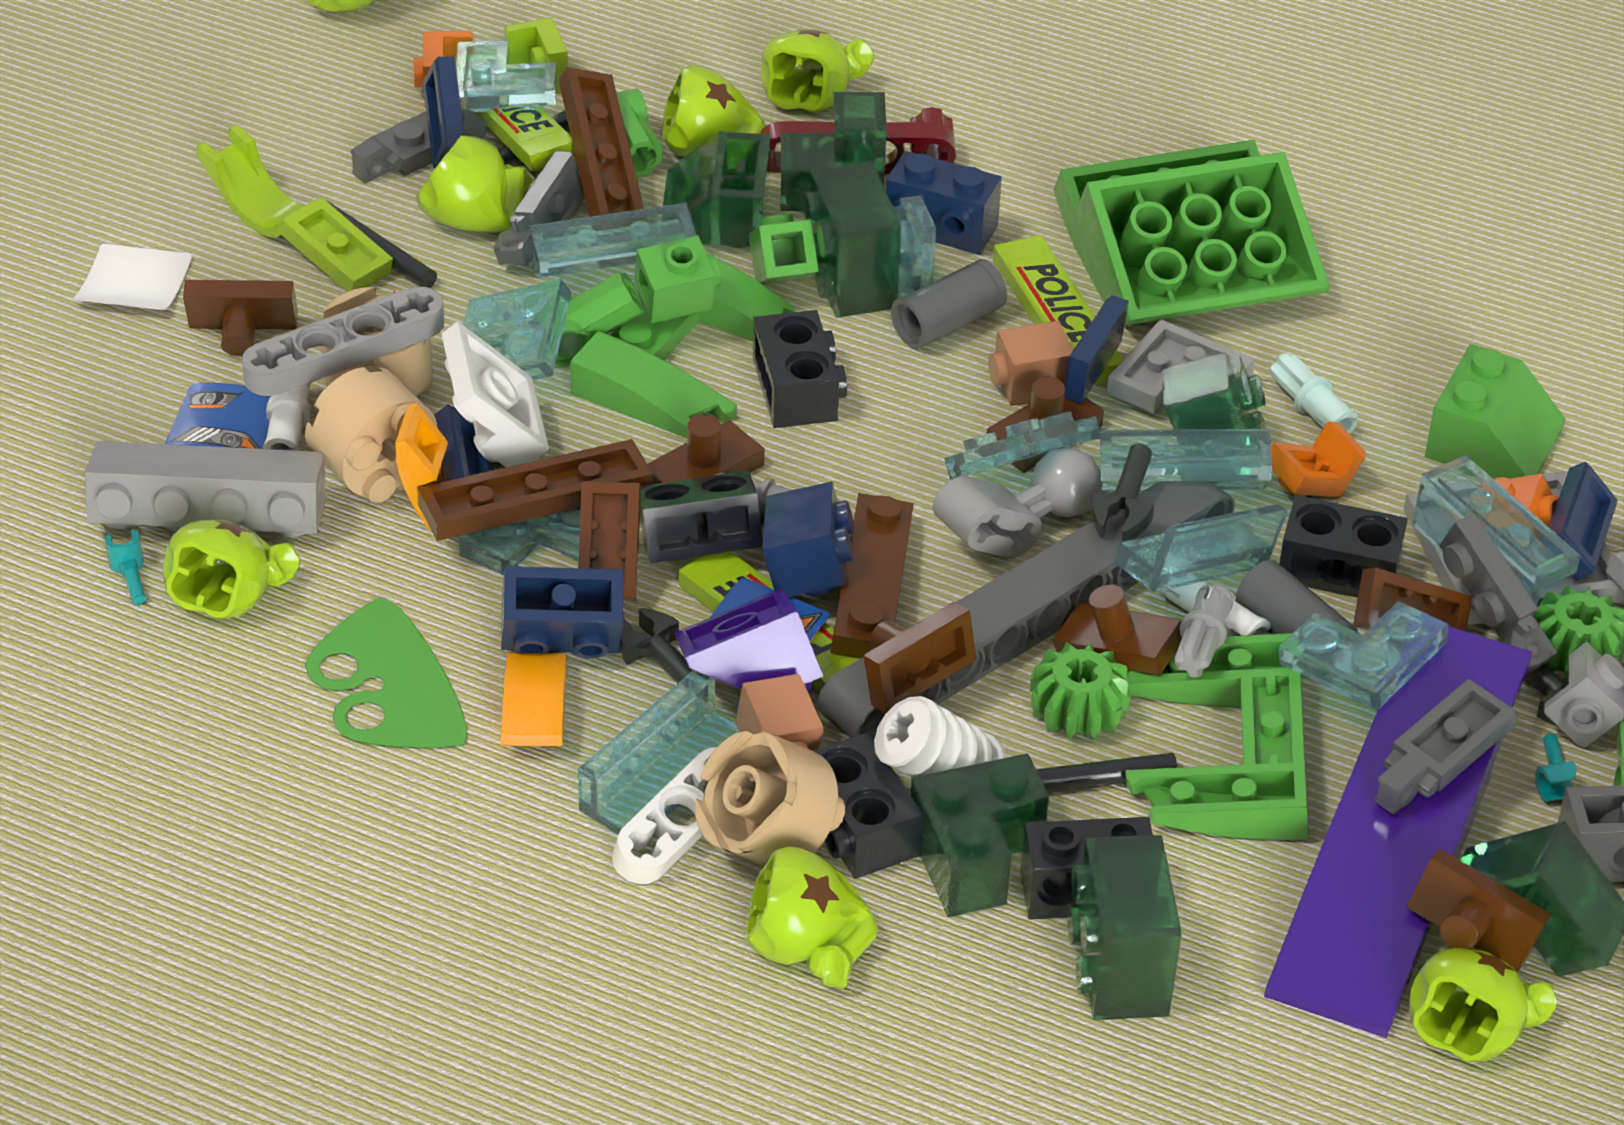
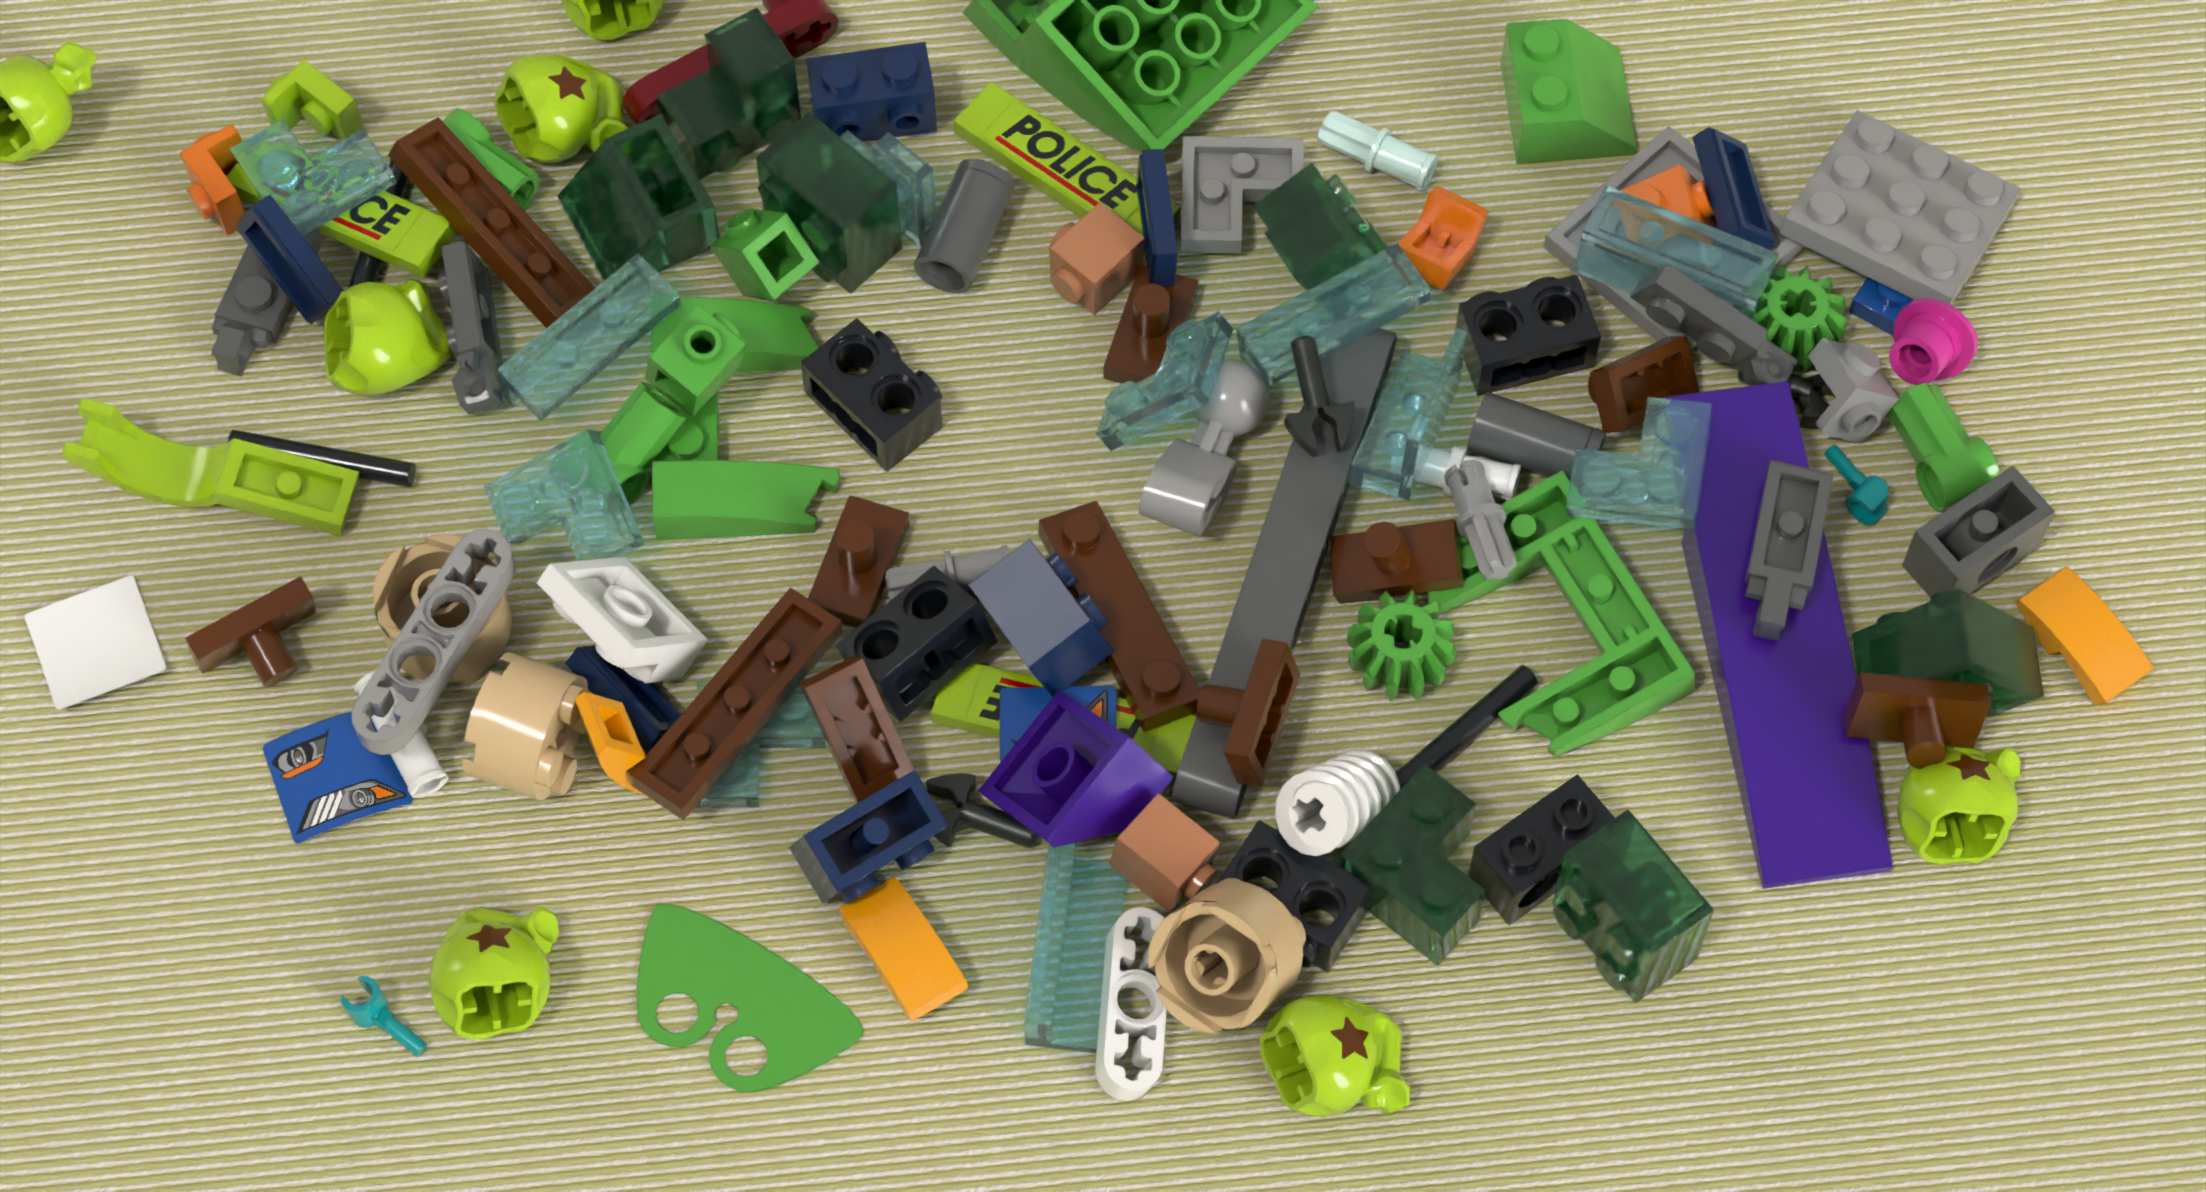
camera: 30 degrees left, 20 degrees up
(194, 483) = (401, 885): light grey brick -> none

